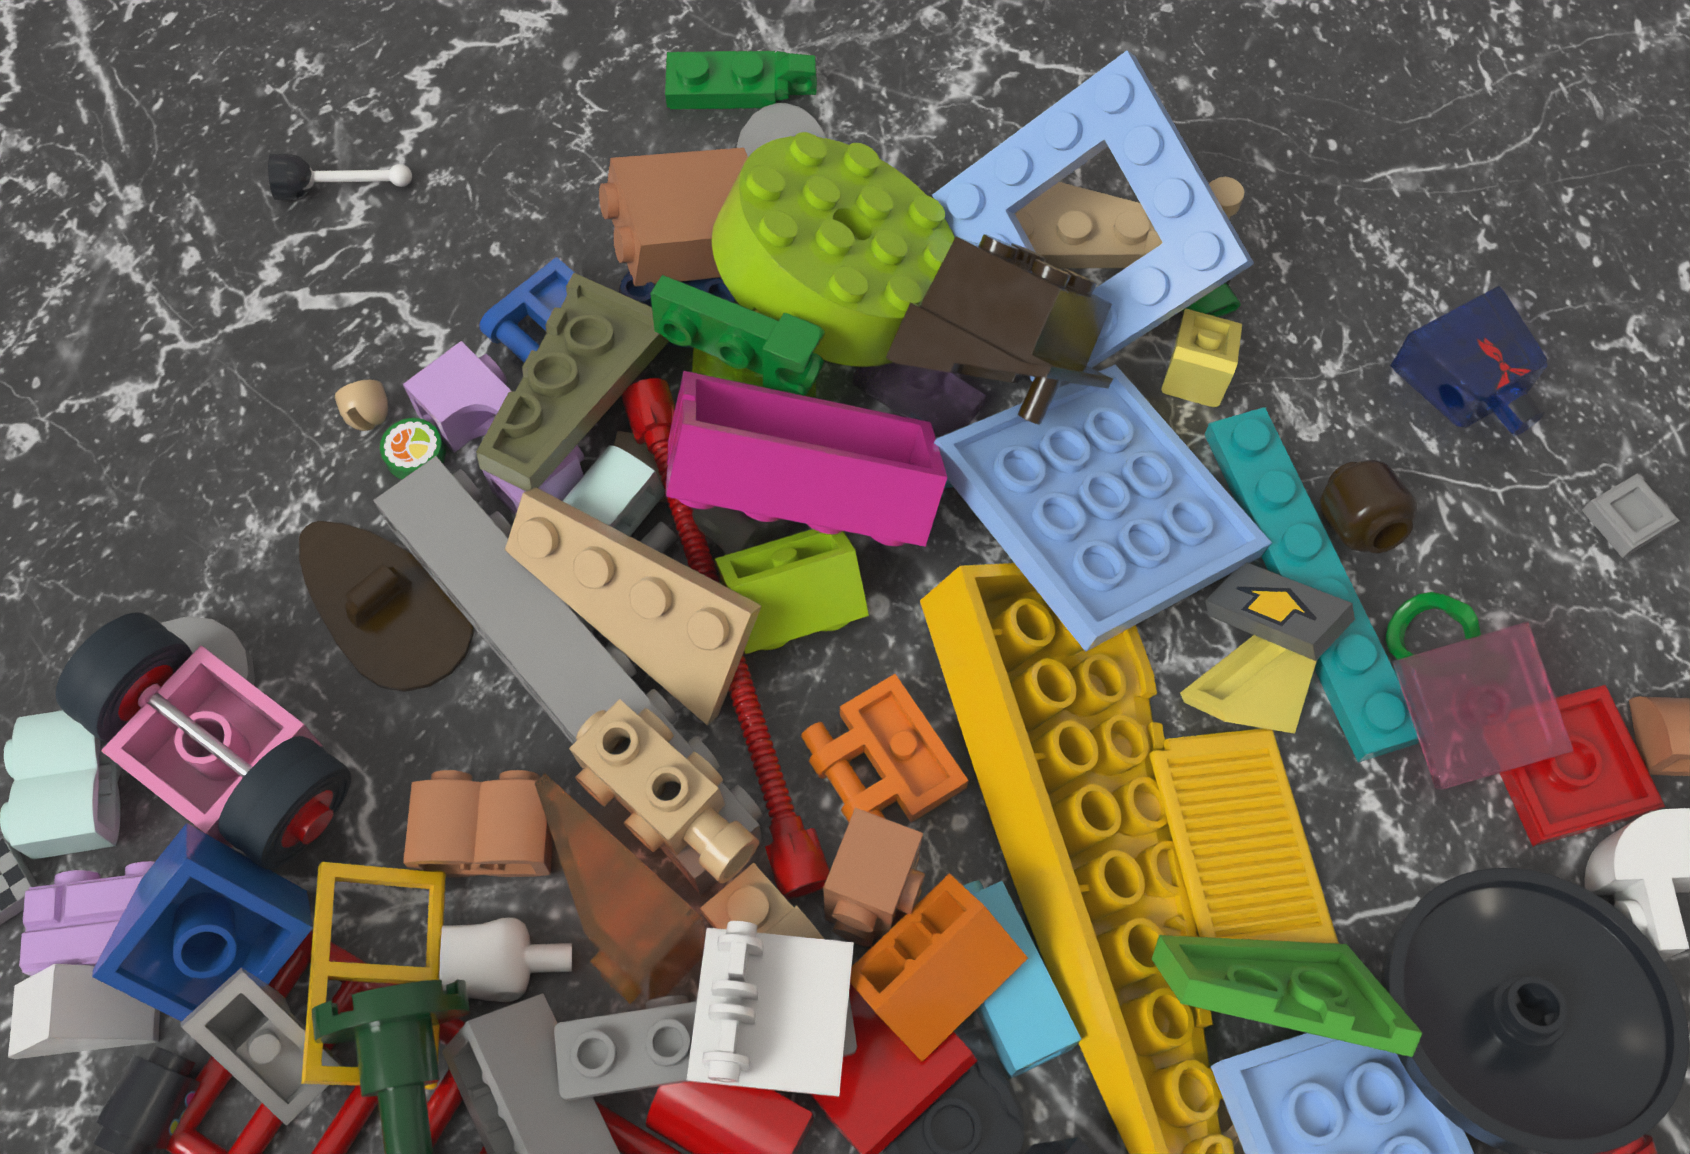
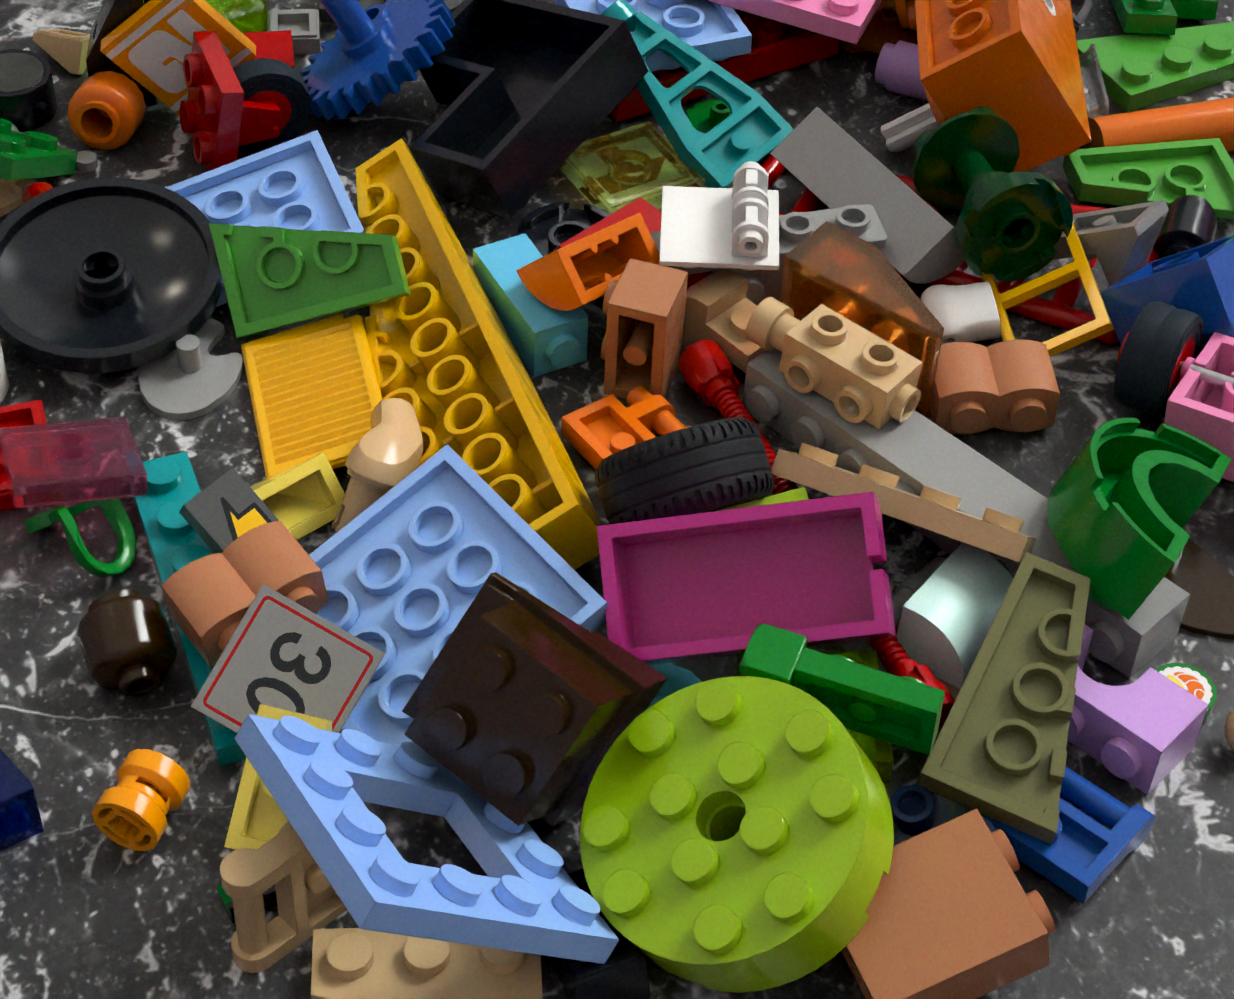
camera: 175 degrees right, 20 degrees down
(420, 577) = (1126, 505): none -> green brick
(878, 657) = (686, 472): none -> black tyre
(1151, 696) = (381, 457): none -> tan arm
(1215, 429) = (287, 662): none -> light grey piece
(1268, 508) = (217, 589): none -> nougat brick
(1317, 356) = (145, 792): none -> light orange wheel
(1379, 888) = (189, 378): none -> light grey piece

